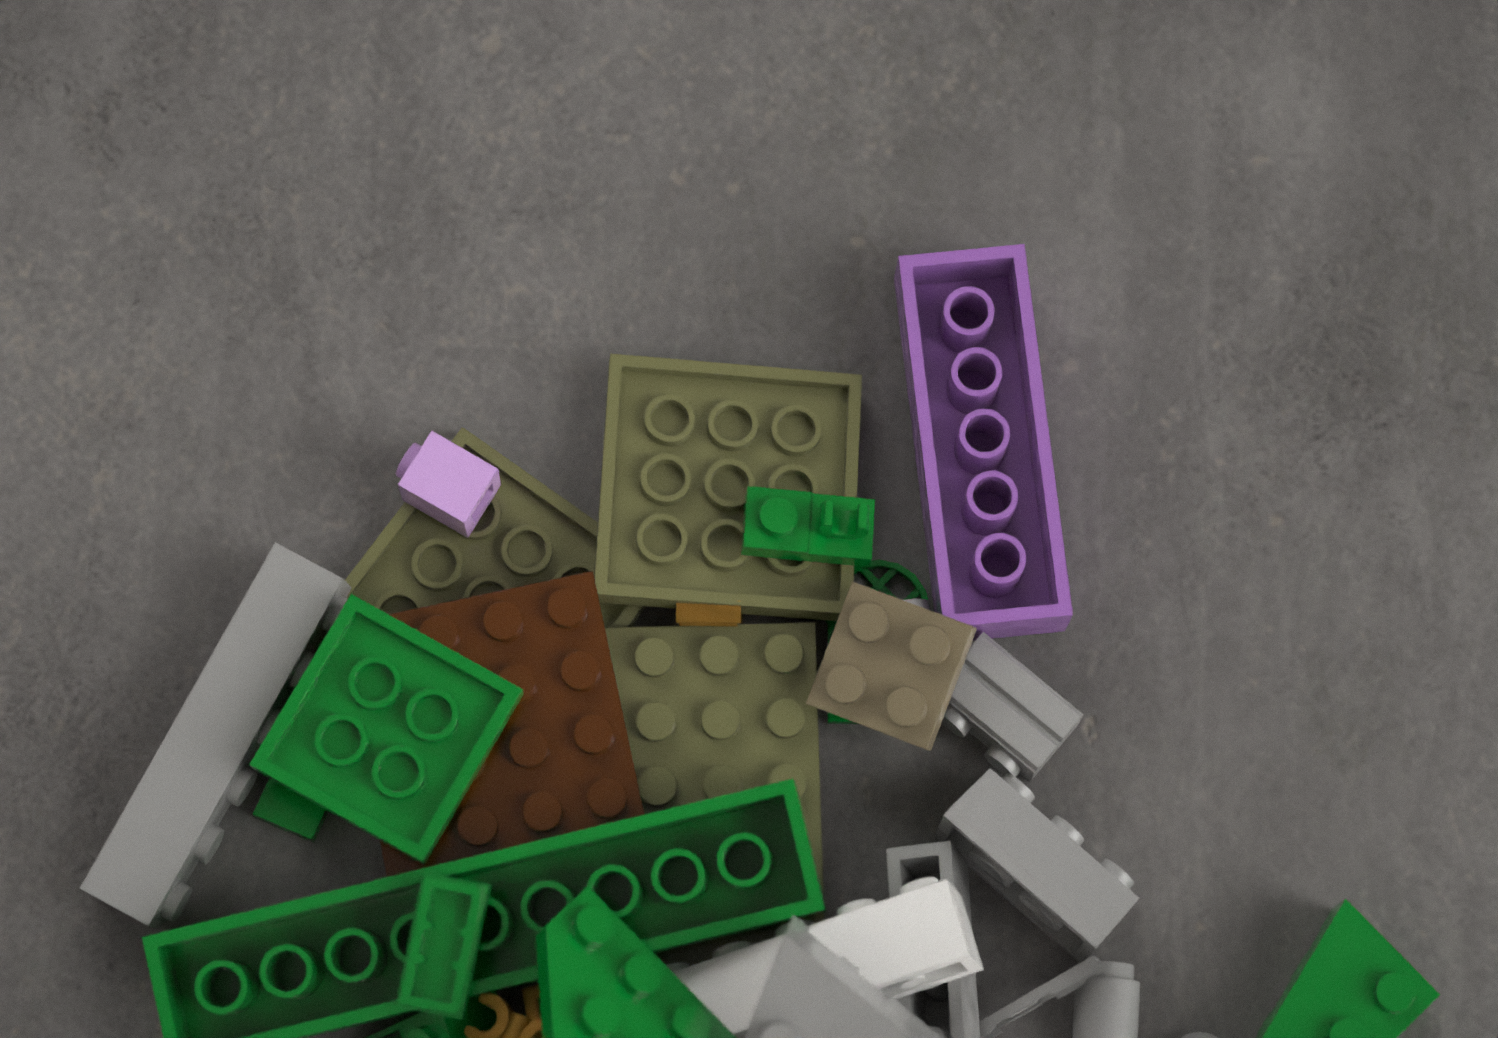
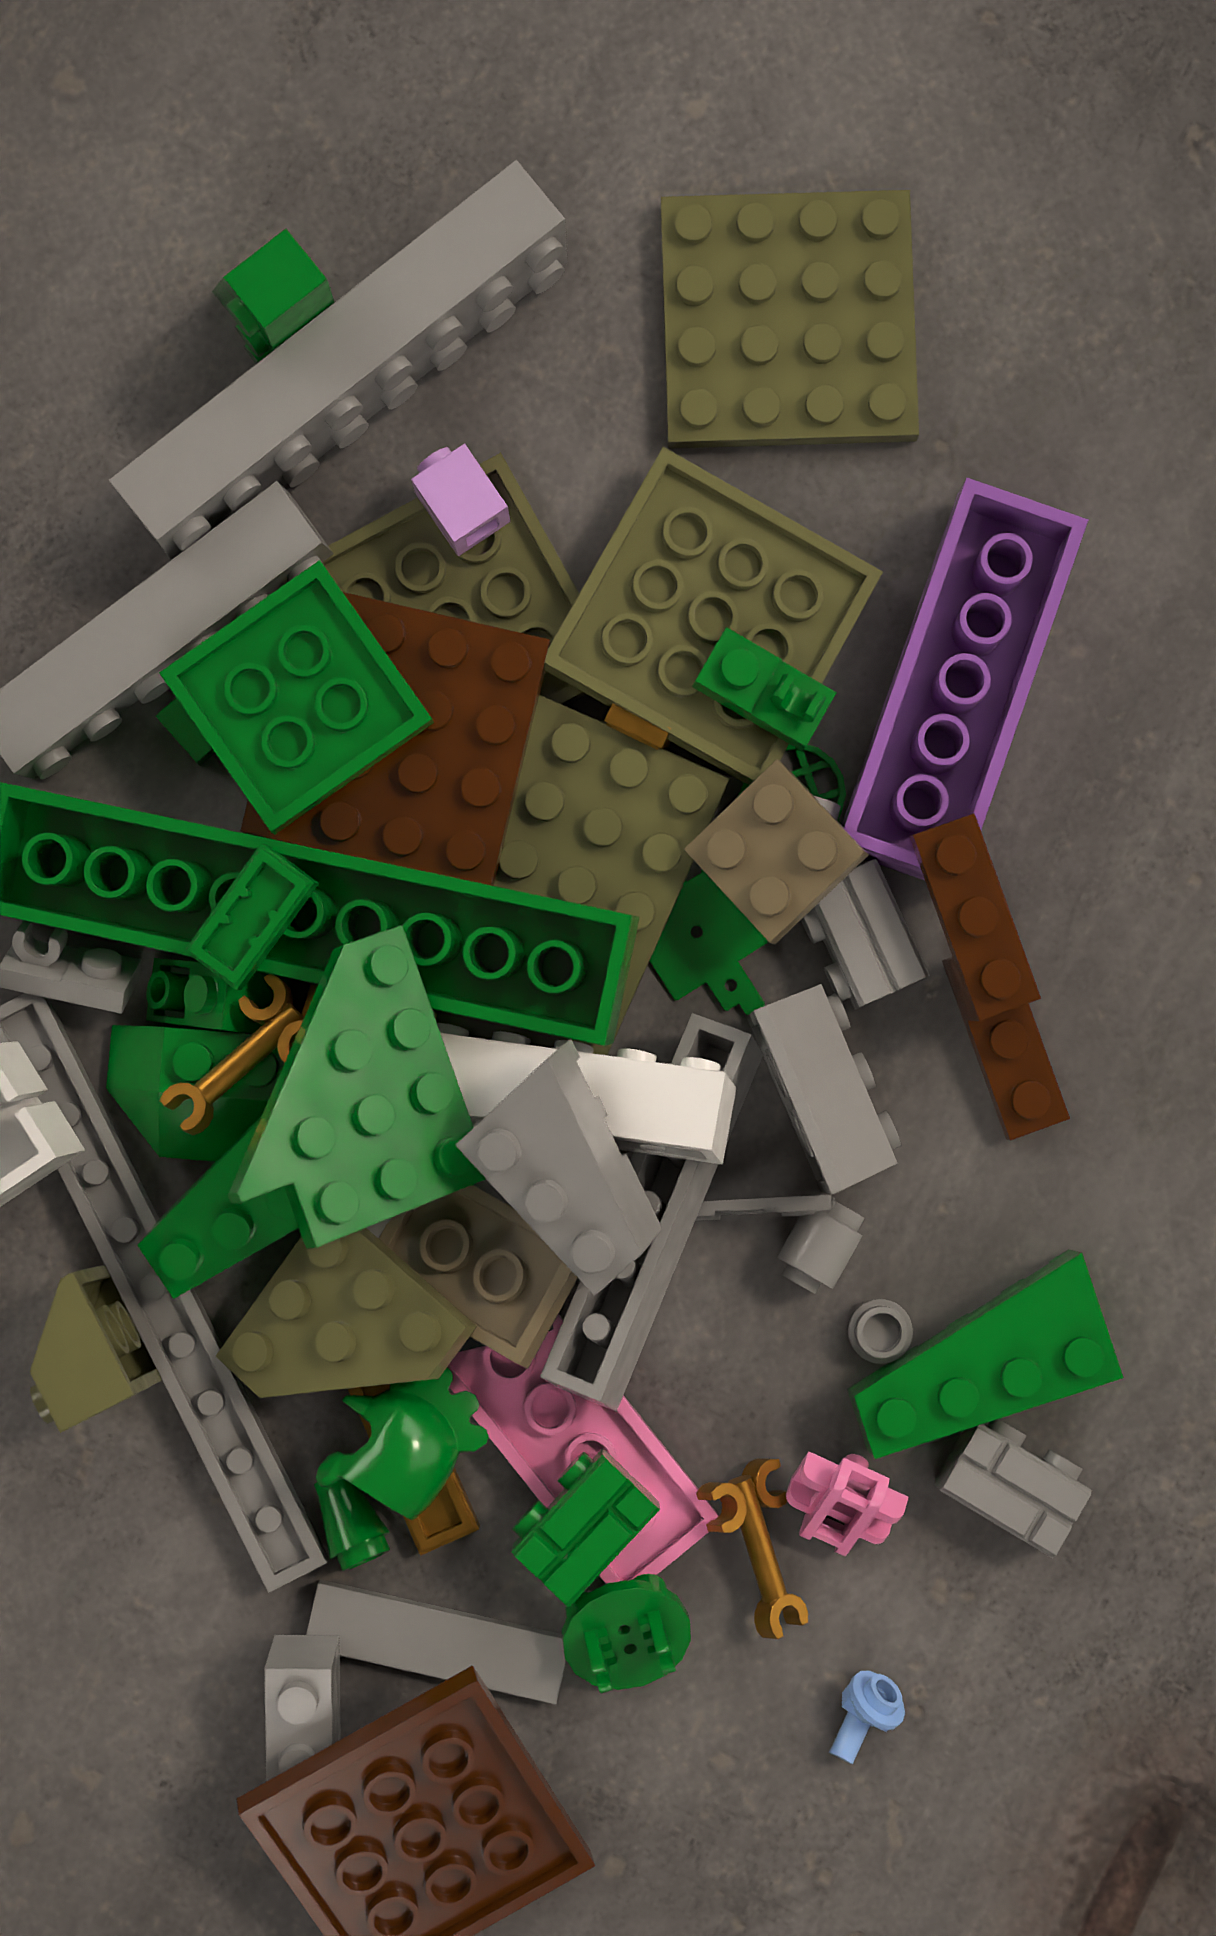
camera: 30 degrees right, 10 degrees up
(201, 384) = (274, 294): none -> green wedge
(287, 413) = (350, 361): none -> light grey brick
(666, 192) = (789, 319): none -> olive plate
(878, 795) = (715, 956): none -> green piece
(1139, 690) = (990, 976): none -> reddish brown bracket

